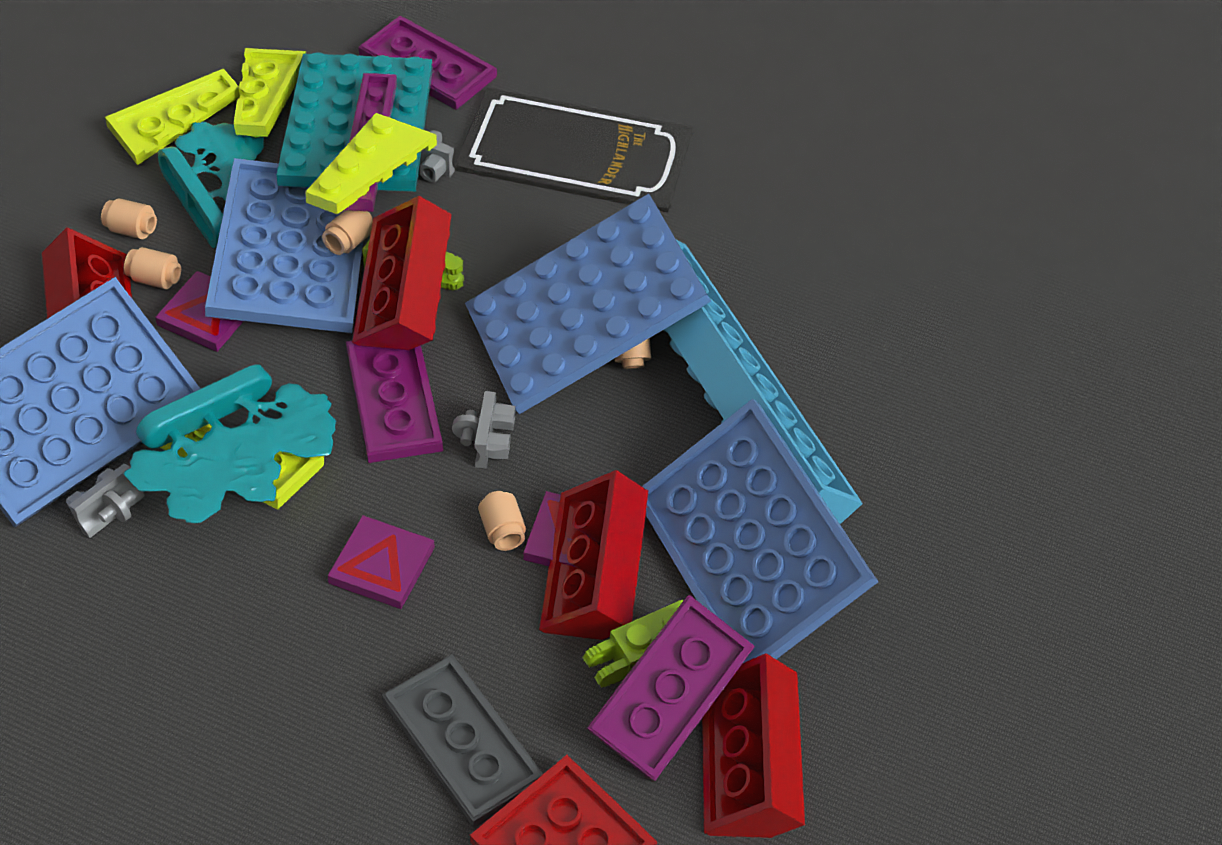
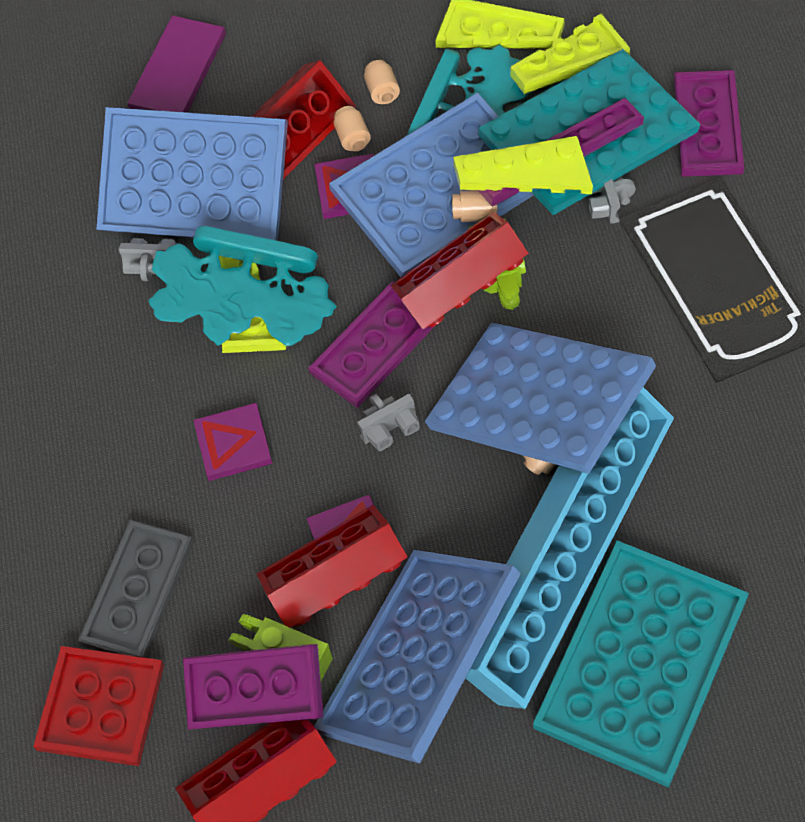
camera: 65 degrees right, 10 degrees up
(502, 520) = (319, 486): light nougat brick -> none
(881, 411) = (641, 663): none -> teal plate

